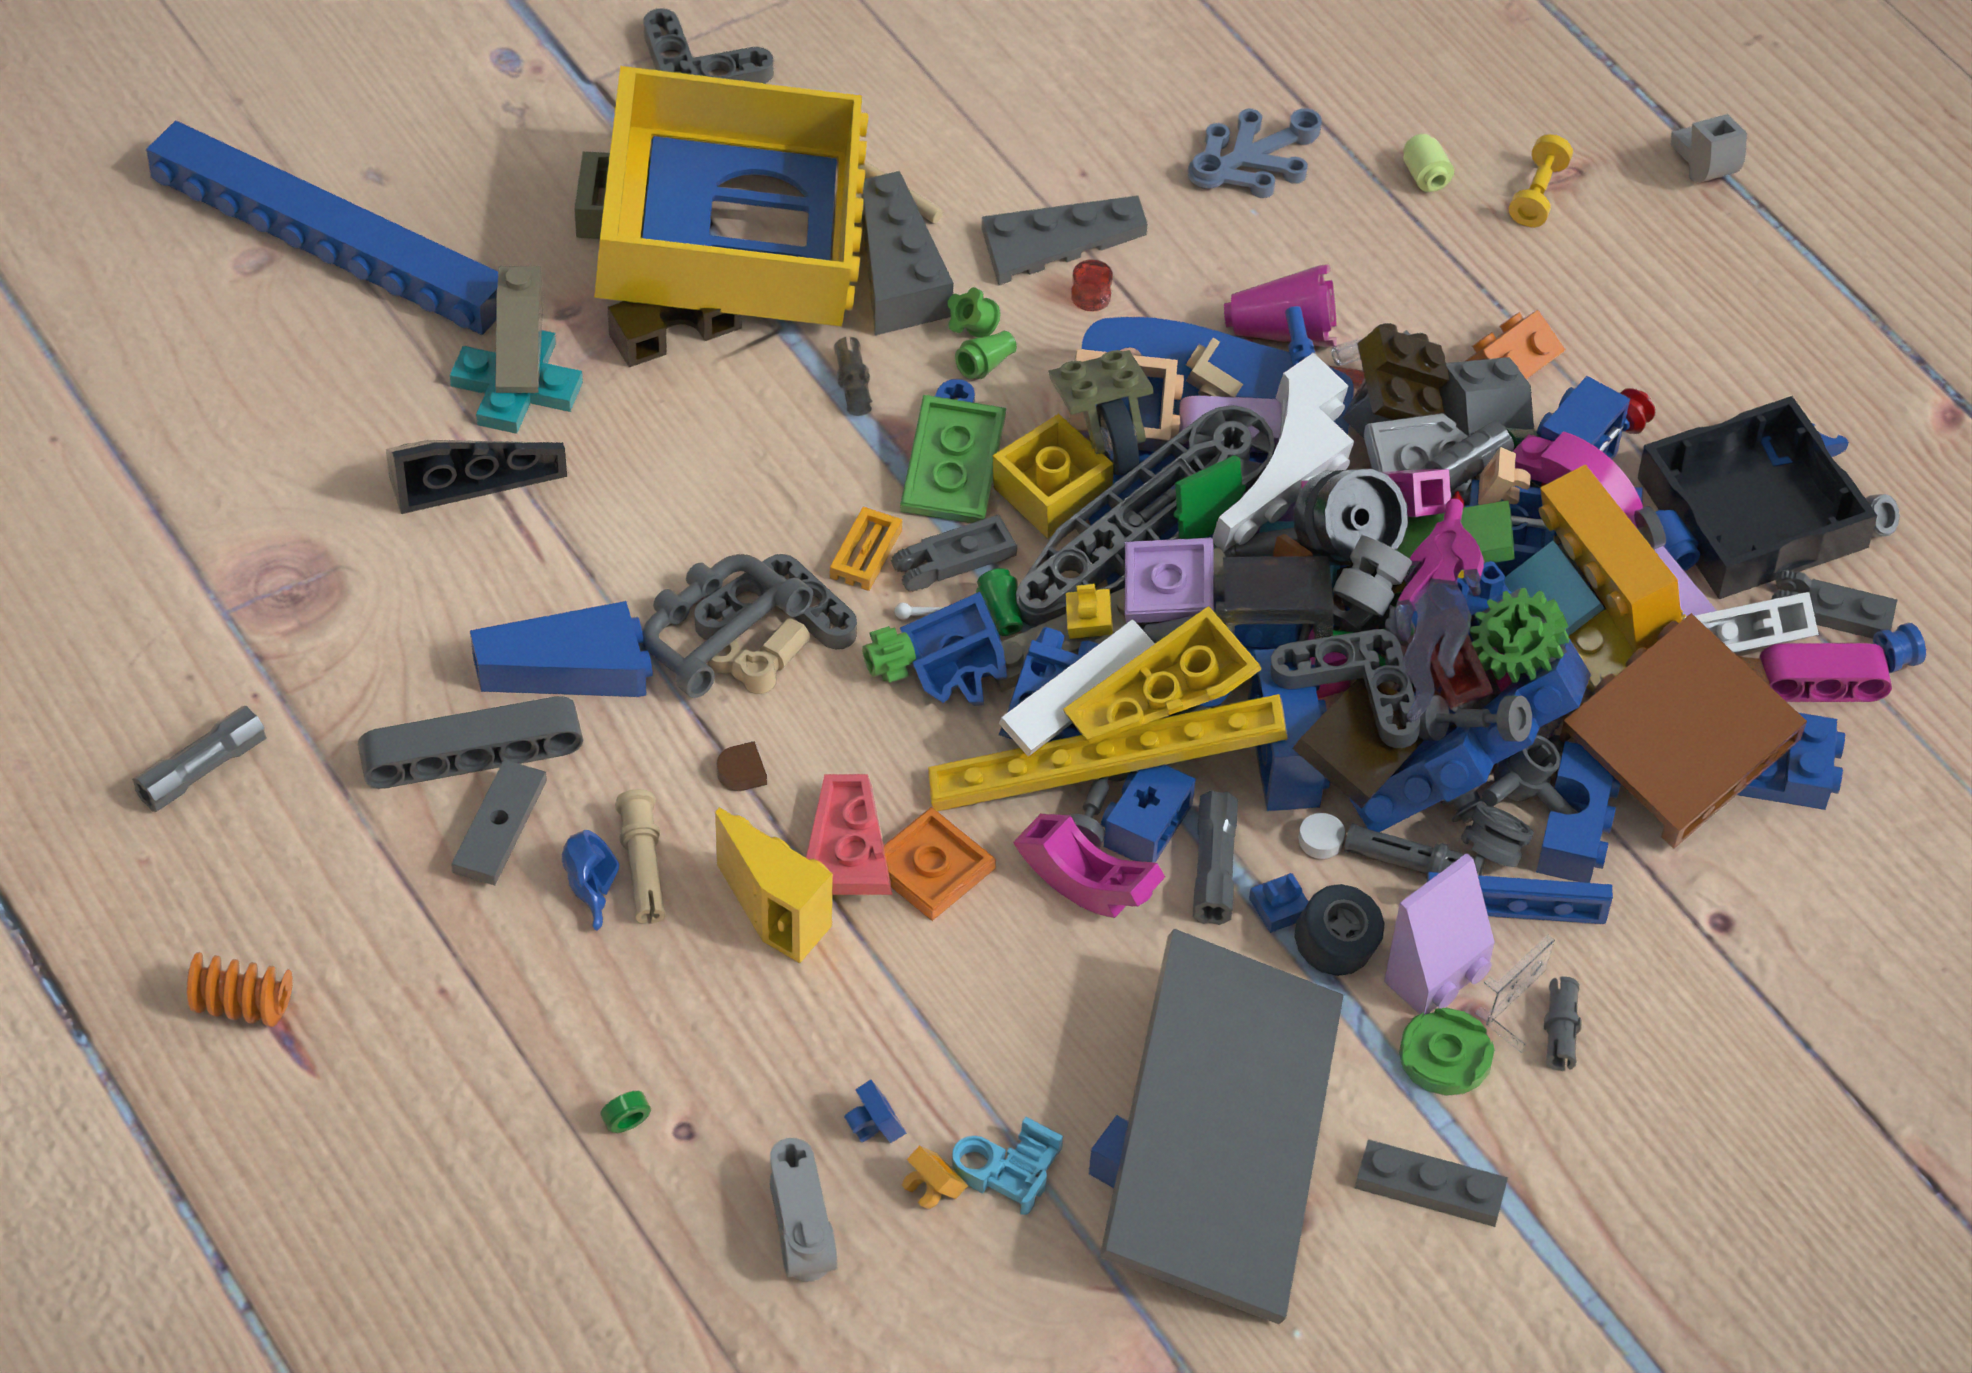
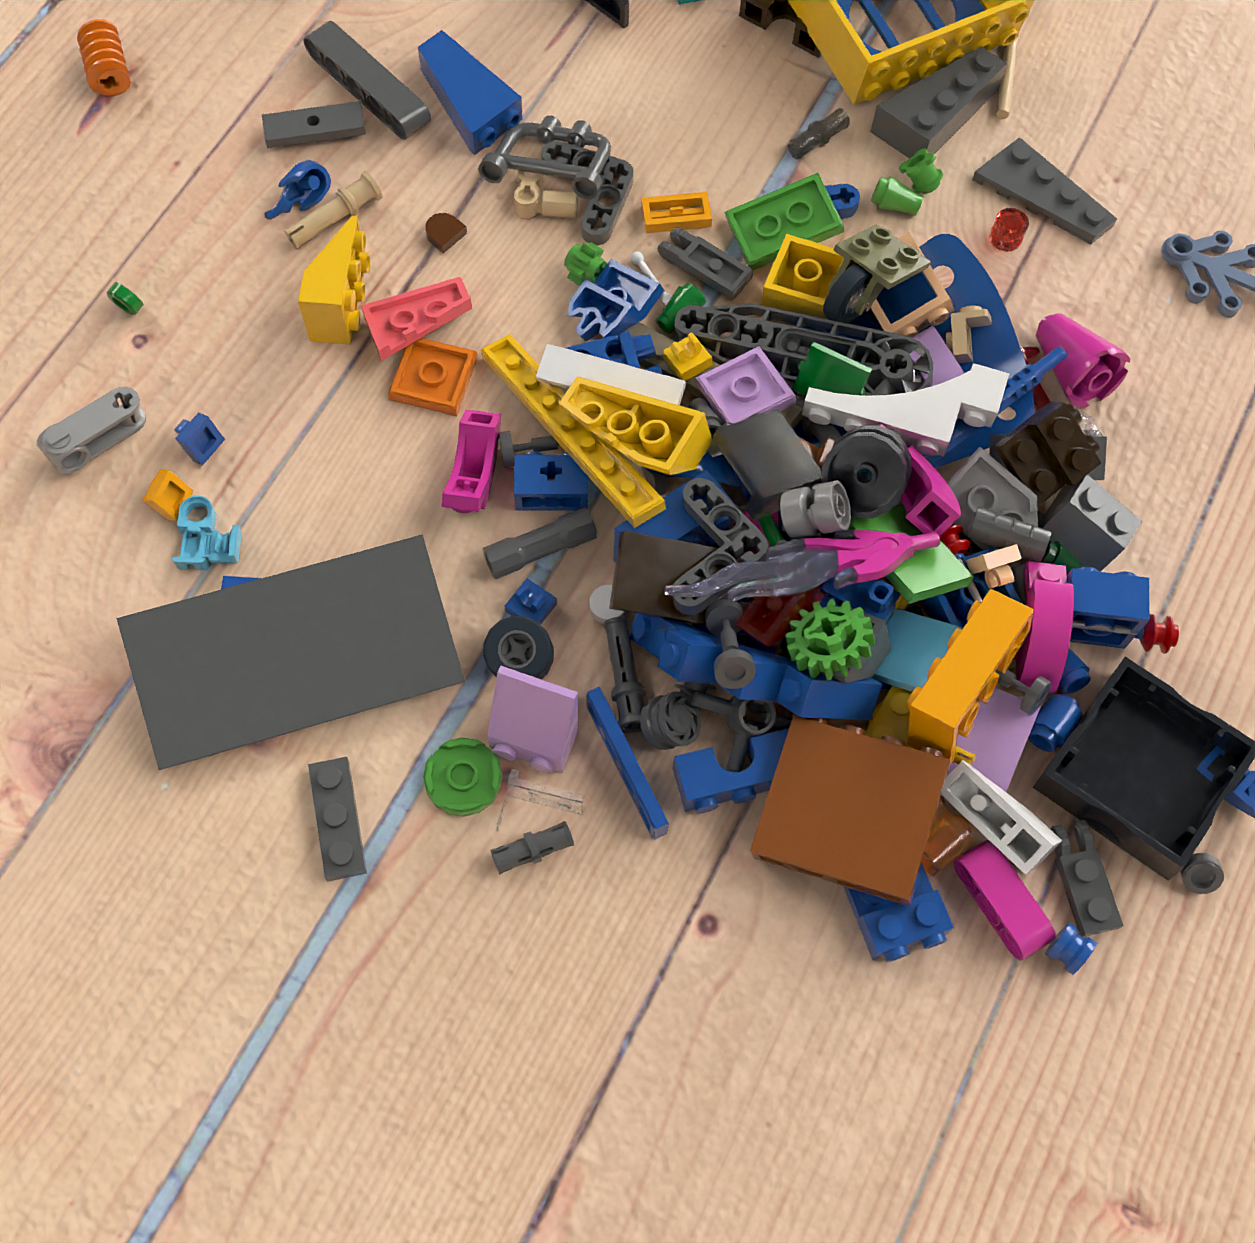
camera: 60 degrees right, 15 degrees up
(1525, 340) = (1167, 531): orange bracket -> none

